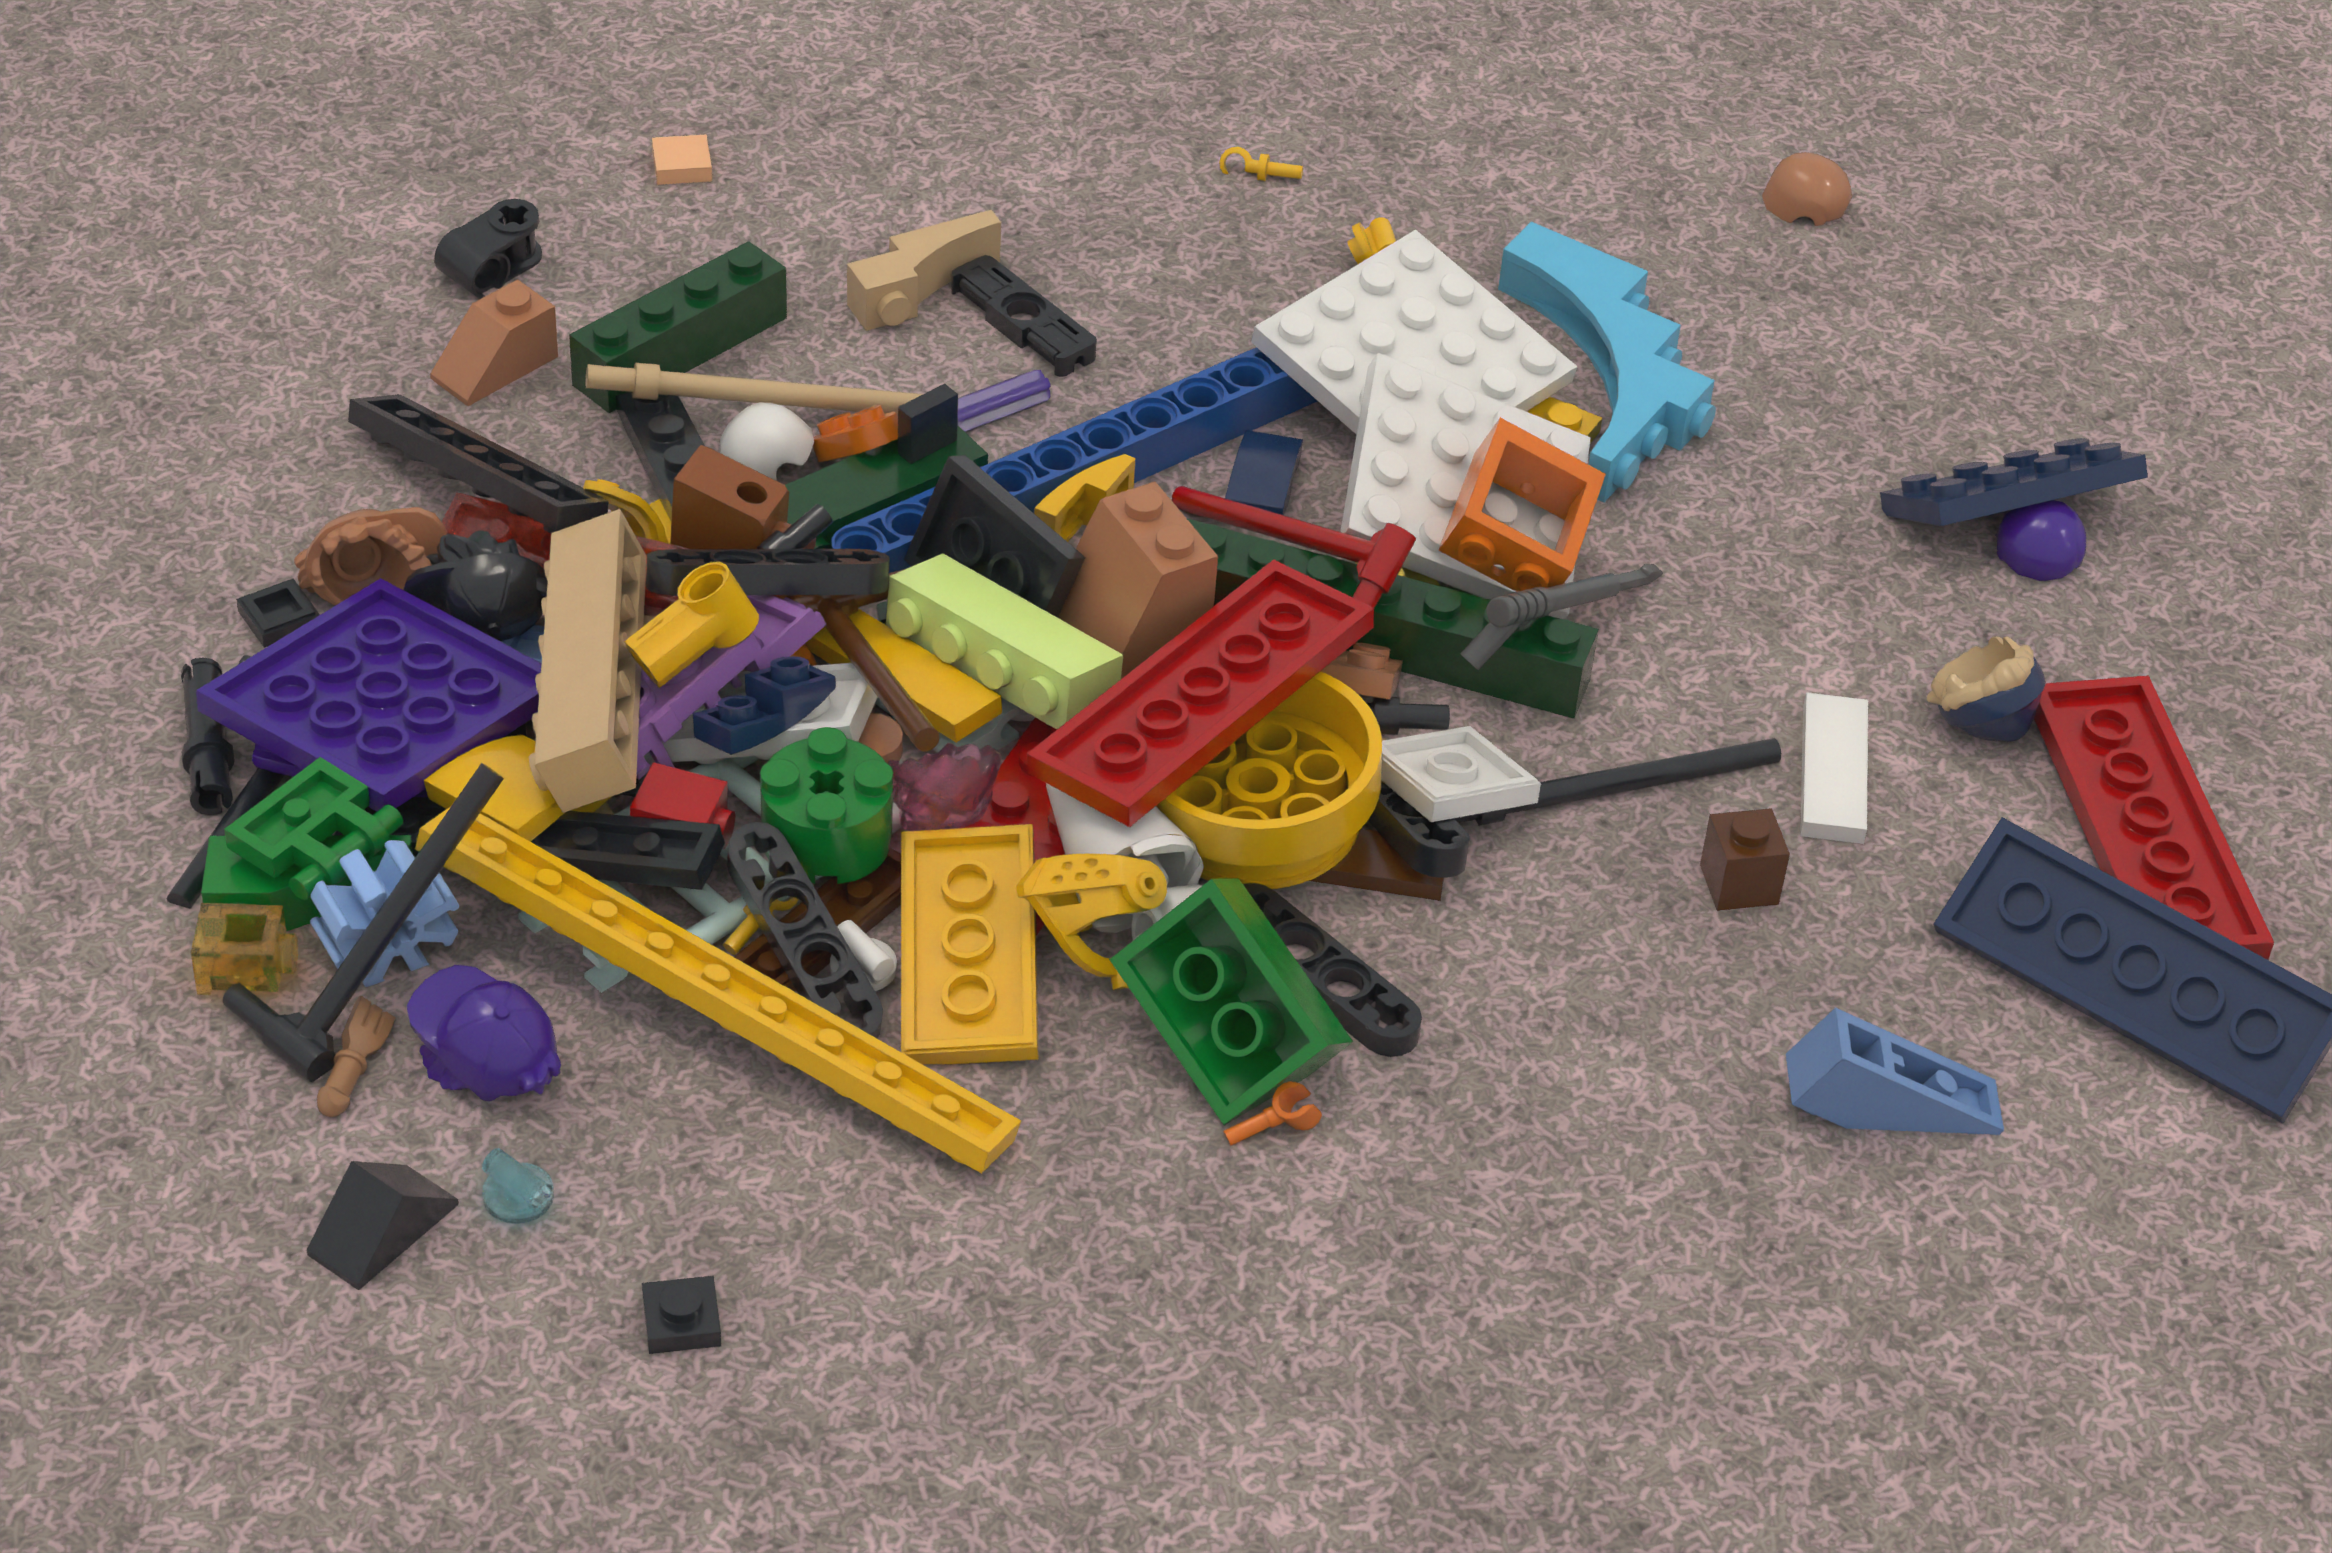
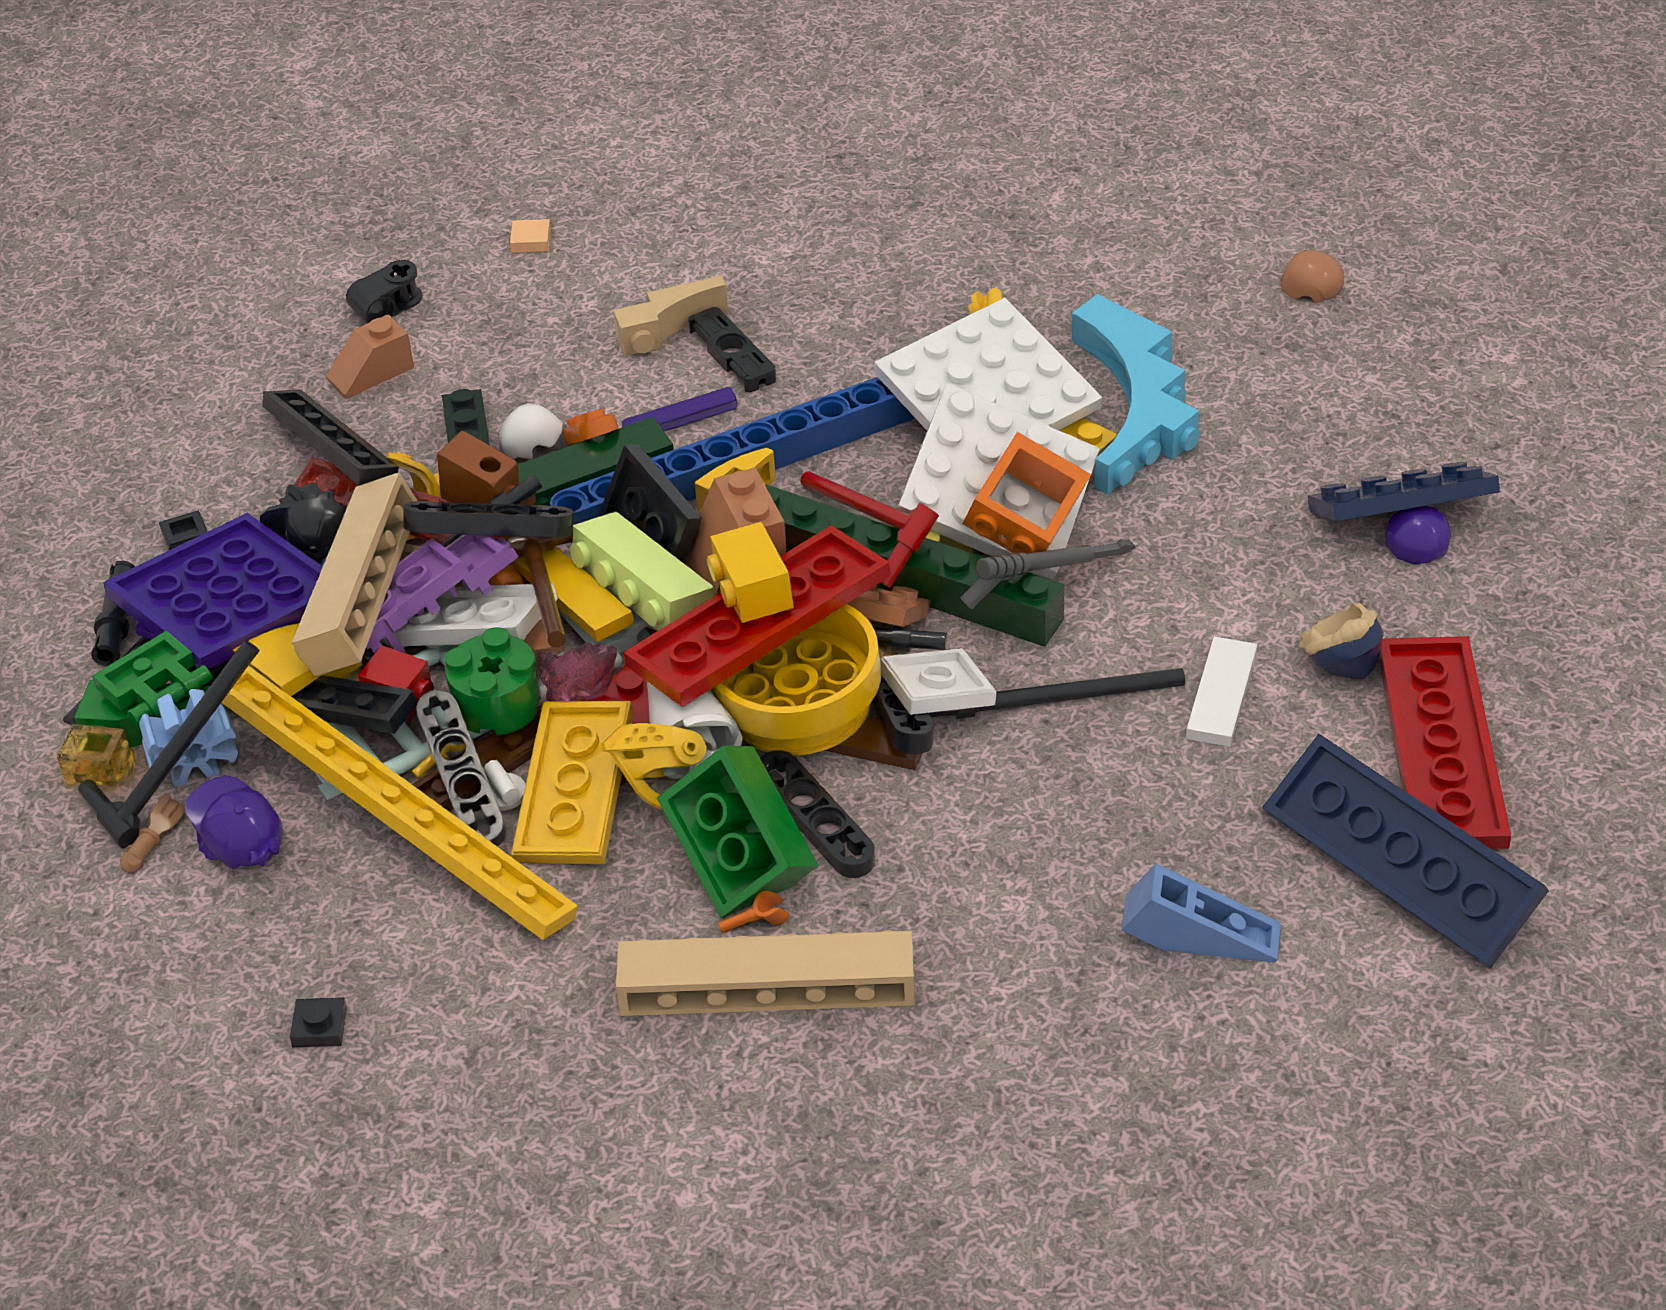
camera: 15 degrees right, 0 degrees up
(367, 547) = (244, 491): nougat hair -> none
(375, 1219) = (136, 941): black slope -> none
(515, 1189) = (231, 929): clear light blue plate -> none
(648, 381) = (458, 386): tan bar -> none
(685, 319) = (493, 348): dark green brick -> none
(707, 615) = (431, 546): yellow piece -> none
(772, 704) = (474, 607): dark blue slope -> none
(927, 423) = (631, 421): black tile -> none
(1190, 630) = (750, 572): none -> yellow brick
(1262, 166) = (925, 250): yellow hand -> none
(1264, 471) = (867, 464): dark blue slope -> none
(1316, 1197) = (765, 973): none -> tan brick
(1744, 859) = (1133, 753): reddish brown brick -> none

